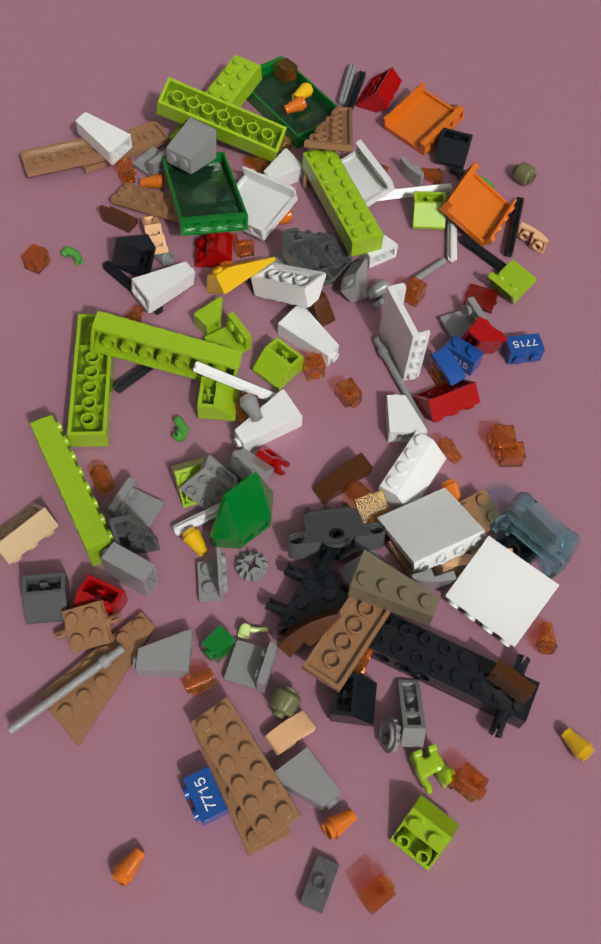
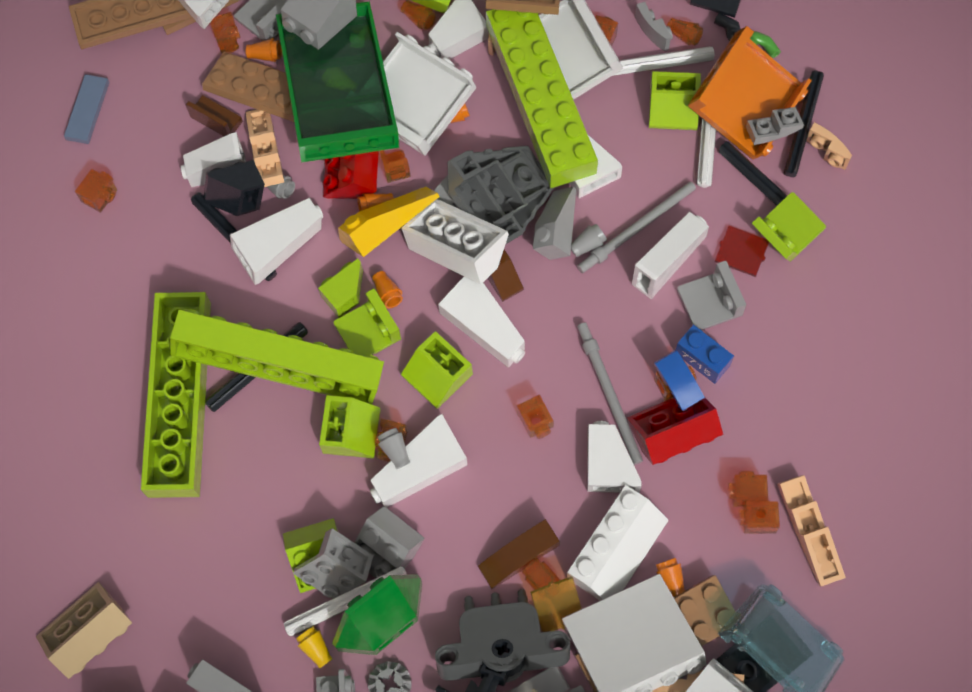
camera: 10 degrees right, 10 degrees up
(30, 214) = (86, 109): none -> sand blue tile
(67, 250) = (143, 175): bright green arm -> none
(73, 487) = (149, 571): lime brick -> none
(102, 478) = (190, 550): clear orange brick -> none
(107, 239) = (216, 154): none -> white slope
(133, 535) = (227, 645): dark grey wedge -> none
(135, 314) = (234, 291): clear orange cone -> none
(137, 503) = (234, 596): light grey bracket -> none
(182, 430) = (300, 473): bright green arm -> none
(232, 381) = (372, 405): white axle -> none
(243, 317) = (387, 290): none -> orange cone
(272, 458) = (421, 520): red plate -> none
(312, 362) = (487, 373): clear orange brick -> none
(400, 334) = (623, 365): white panel -> none
(415, 291) = (640, 242): clear orange brick -> none
(432, 297) = (669, 254): none -> white slope
(449, 450) = (673, 509): clear orange cone -> none
(484, 336) = (732, 330): red slope -> none
(500, 221) = (780, 124): none -> light grey slope
(523, 348) = (795, 343): blue brick -> none
(524, 173) = (828, 28): olive head -> none
(547, 464) = (811, 531): none -> light nougat slope

